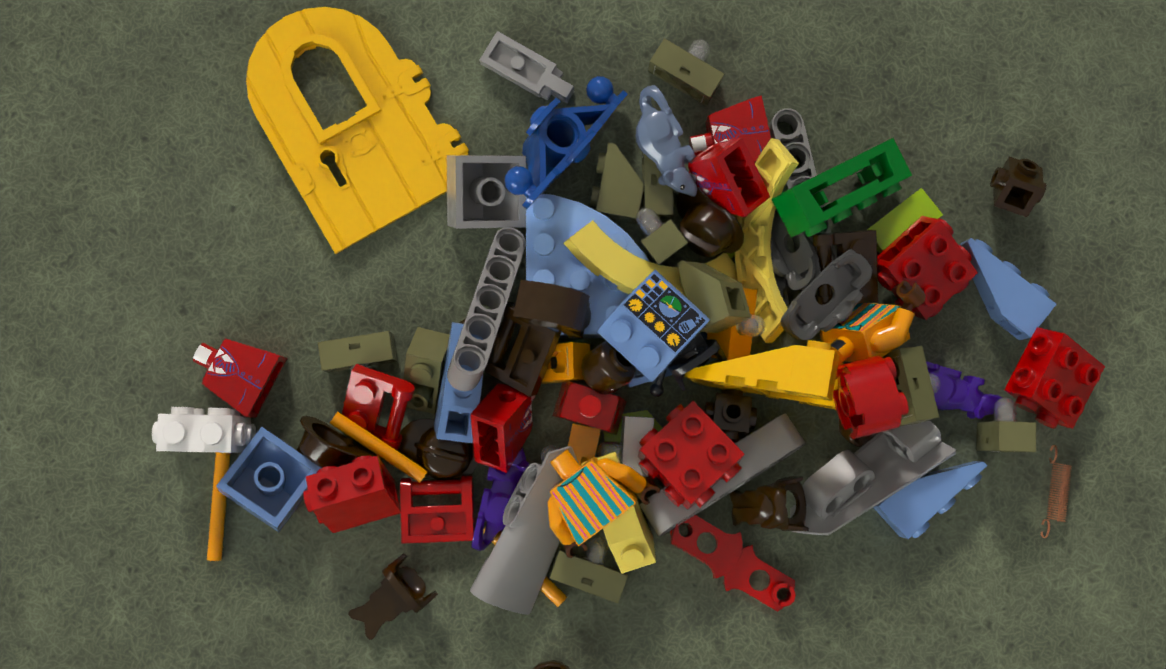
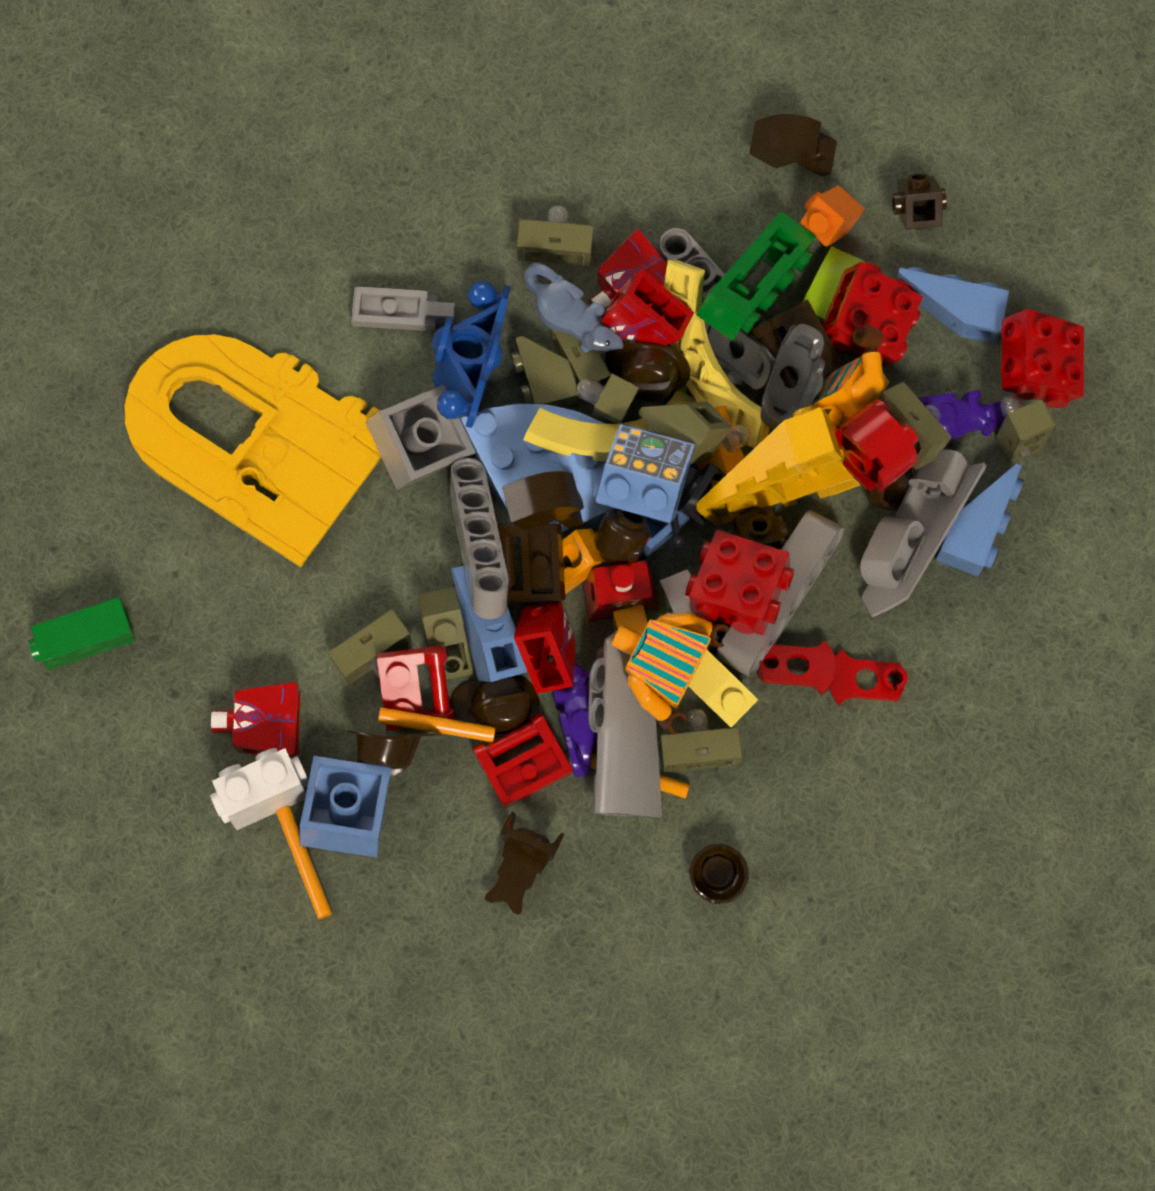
camera: 25 degrees left, 10 degrees down
(128, 225) = (81, 634): none -> green brick
(352, 494) = (435, 777): red brick -> none
(768, 505) = (839, 598): dark brown hair -> none
(935, 77) = (793, 139): none -> dark brown brick
(935, 160) = (831, 215): none -> orange brick
(1061, 493) = (1114, 470): nougat piece -> none

